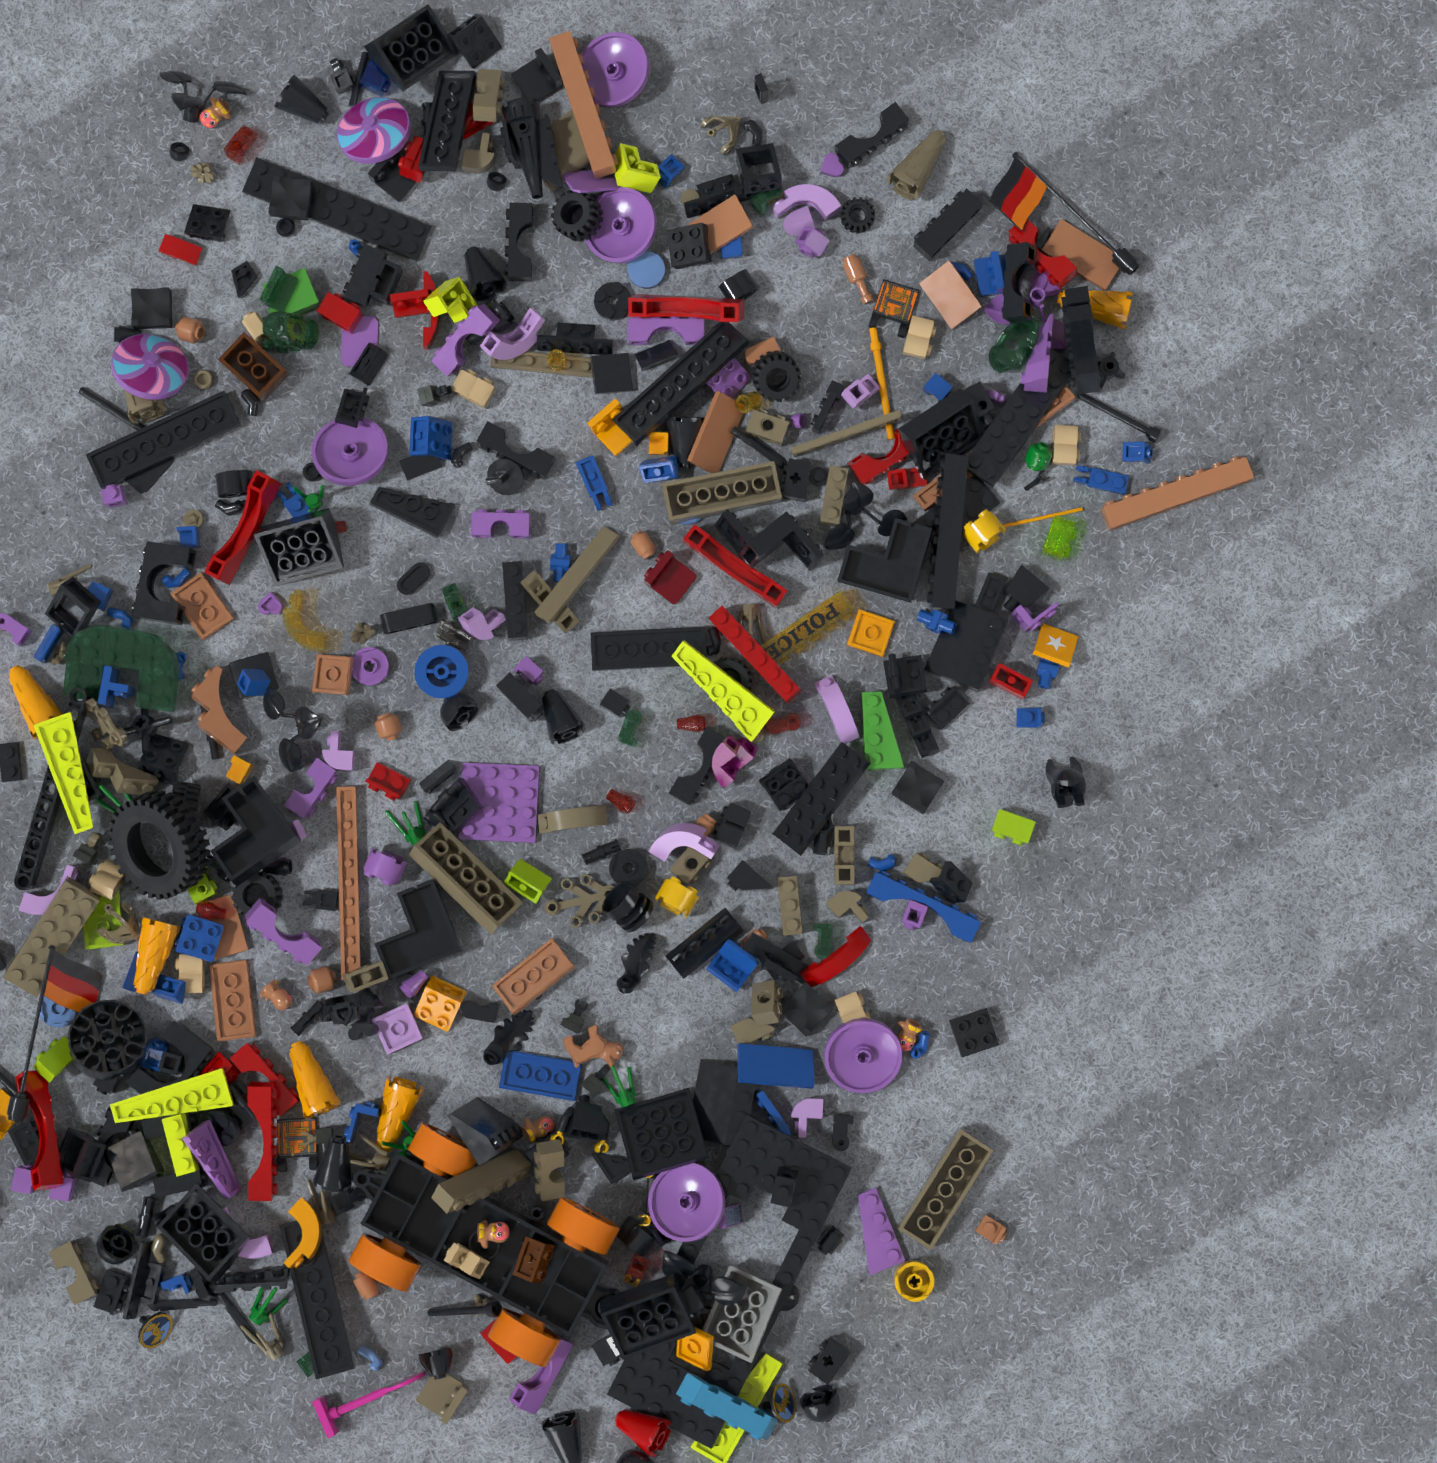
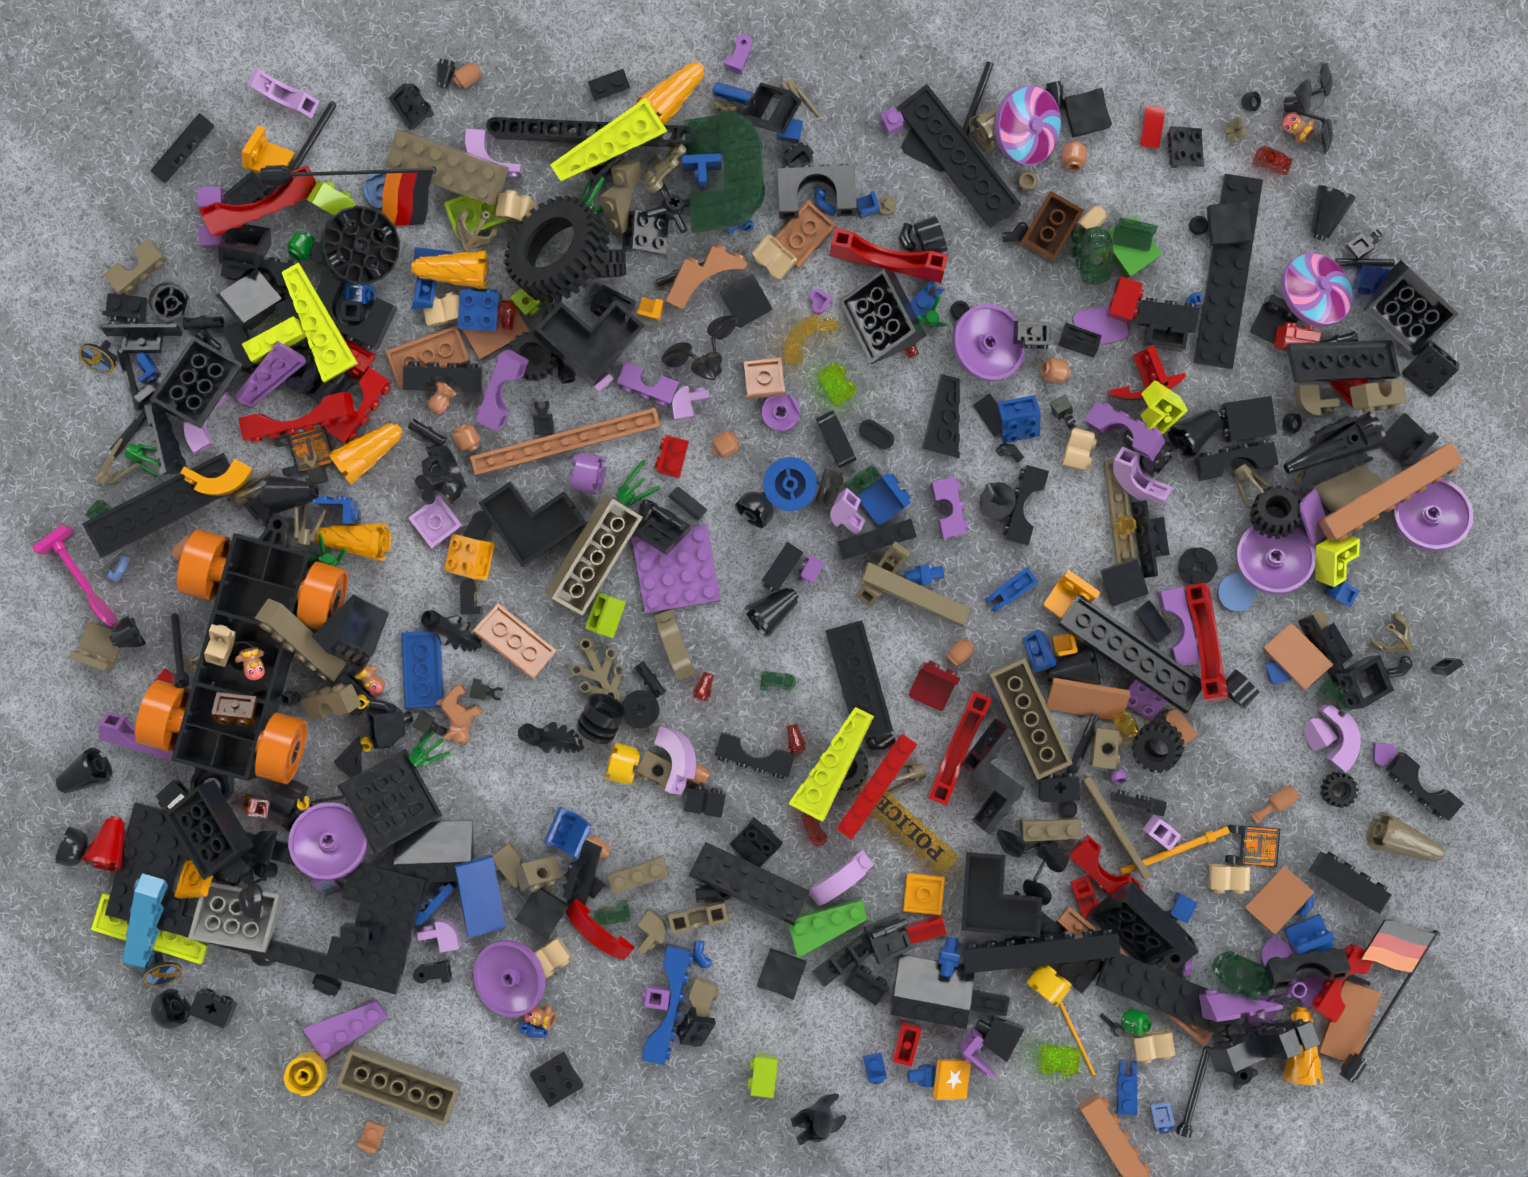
camera: 80 degrees right, 5 degrees up
(86, 853) = (536, 181): pearl dark grey piece -> none
(93, 1101) = (300, 245): none -> green head
(121, 597) = (794, 153): none -> black bracket
(121, 614) = (776, 157): blue arm -> none
(157, 1247) = (176, 340): dark tan arm -> none
(217, 638) = (774, 257): none -> tan brick
(243, 278) = (1138, 195): black piece -> none
(250, 1013) = (468, 377): none -> black arch
(253, 682) = (738, 302): blue panel -> none
(355, 606) = (836, 384): none -> clear neon green brick
(362, 633) = (811, 397): dark tan plant -> none
(365, 976) = (476, 479): dark tan brick -> none
(392, 393) = (1055, 370): none -> nougat head
(413, 984) = (481, 527): medium lavender cone -> none
(477, 584) = (884, 499): none -> blue bracket
(482, 221) = (1248, 419): none -> black brick
(534, 236) = (1246, 473): none -> dark tan plant
(615, 703) = (798, 660): black brick -> none
(689, 245) = (1270, 630): black brick -> none
(705, 945) = (582, 801): black fence -> none
(730, 757) = (770, 786): magenta brick -> none
(746, 879) = (653, 827): black slope -> none
(812, 242) = (1301, 751): medium lavender brick -> none
(905, 638) = (926, 929): none -> red panel

